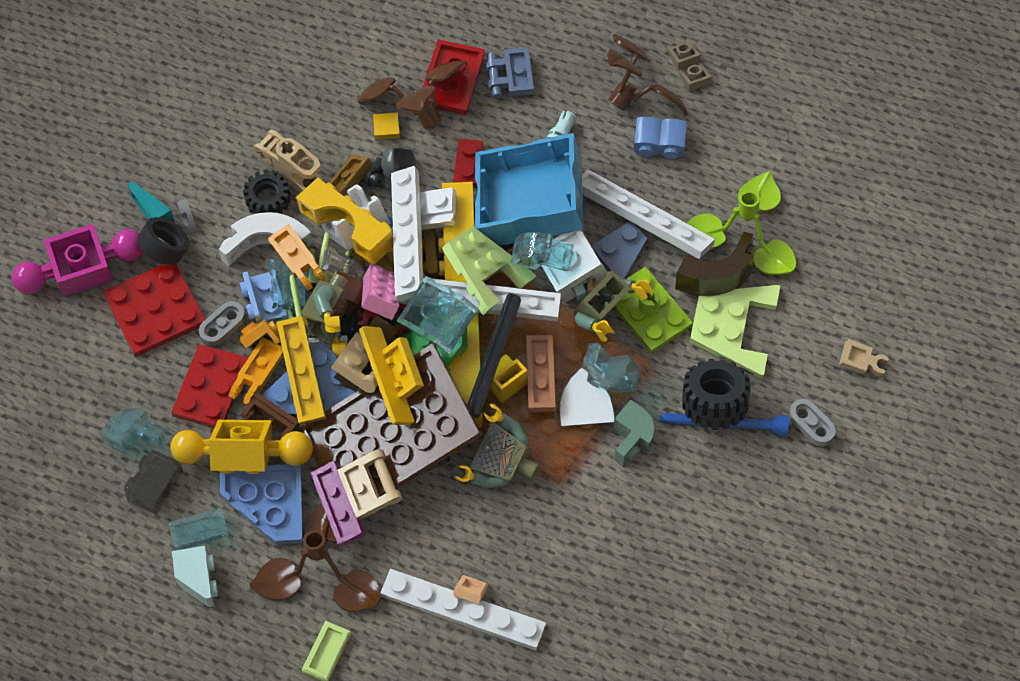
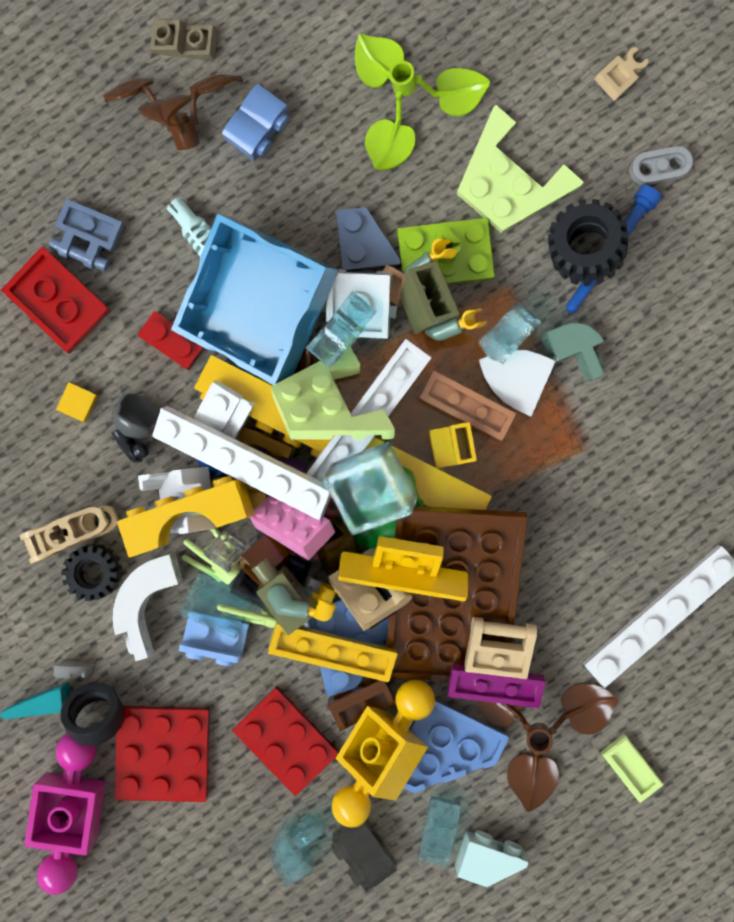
camera: 55 degrees left, 25 degrees up
(220, 323) = (221, 694): light grey plate -> none
(254, 331) = (254, 666): light orange bracket -> none
(257, 369) = (297, 689): light orange hinge -> none
(295, 255) = (195, 589): light orange hinge -> none
(351, 173) = (119, 477): pearl gold plate -> none
(418, 101) = (83, 357): reddish brown plant -> none
(470, 589) = (650, 600): light nougat tile -> none
(493, 354) = (438, 449): black axle -> none
(501, 454) = (538, 492): torso -> none
(646, 215) = (344, 192): white plate -> none
(720, 276) = (452, 173): dark brown arch -> none

